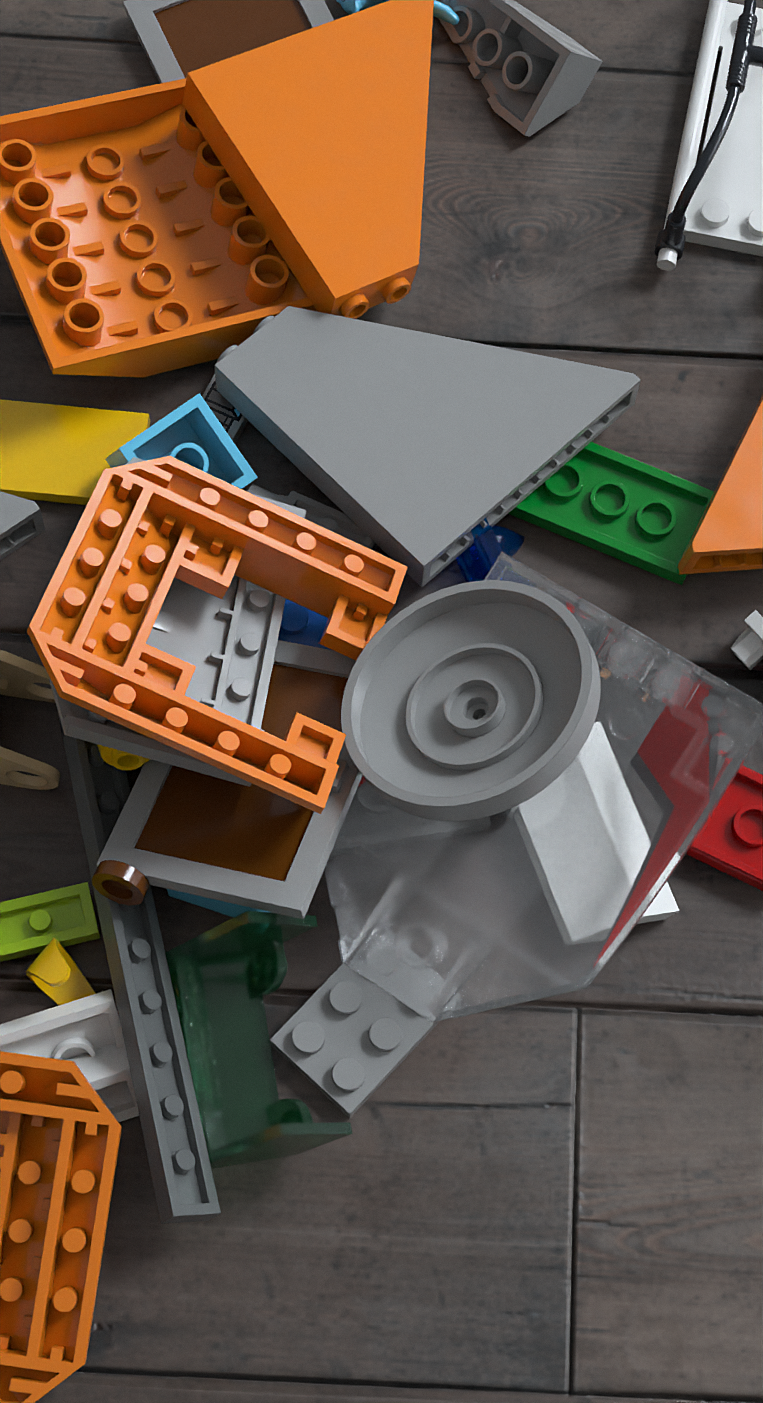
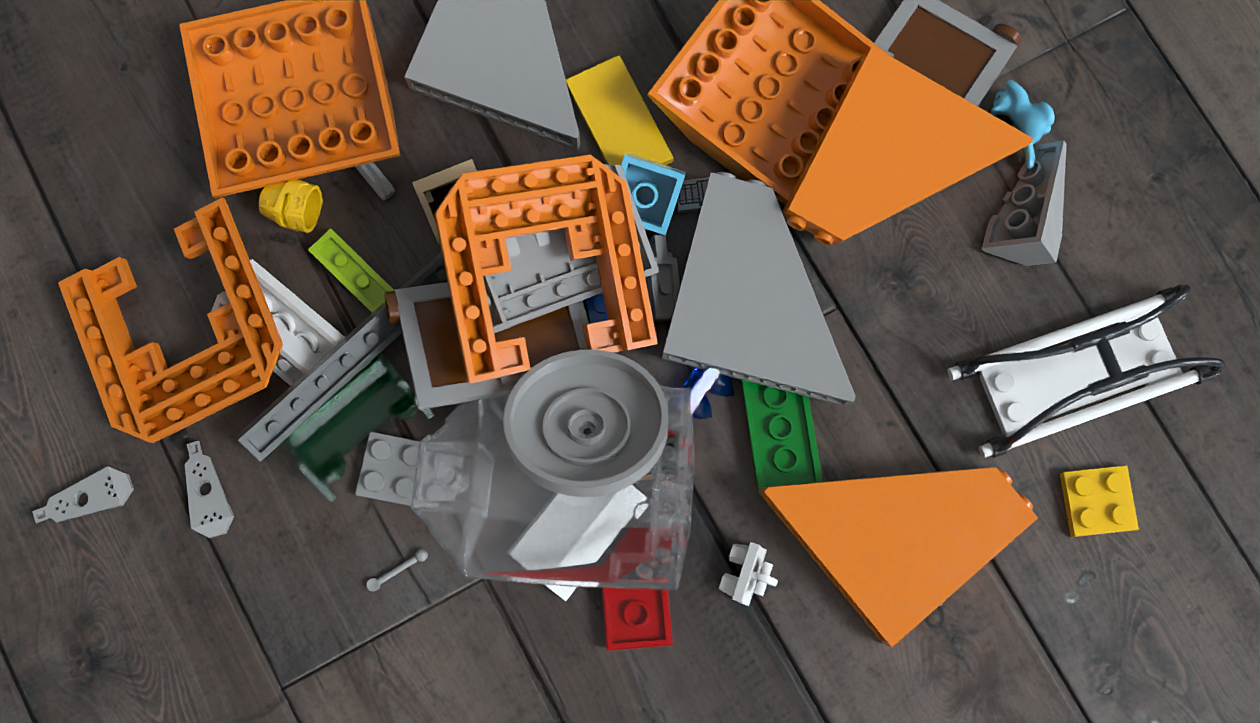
camera: 60 degrees right, 10 degrees up
(58, 975) = (342, 309): yellow helmet -> none
(226, 1341) = (209, 504): none -> light grey piece
(495, 1166) = (374, 584): none -> light grey hinge

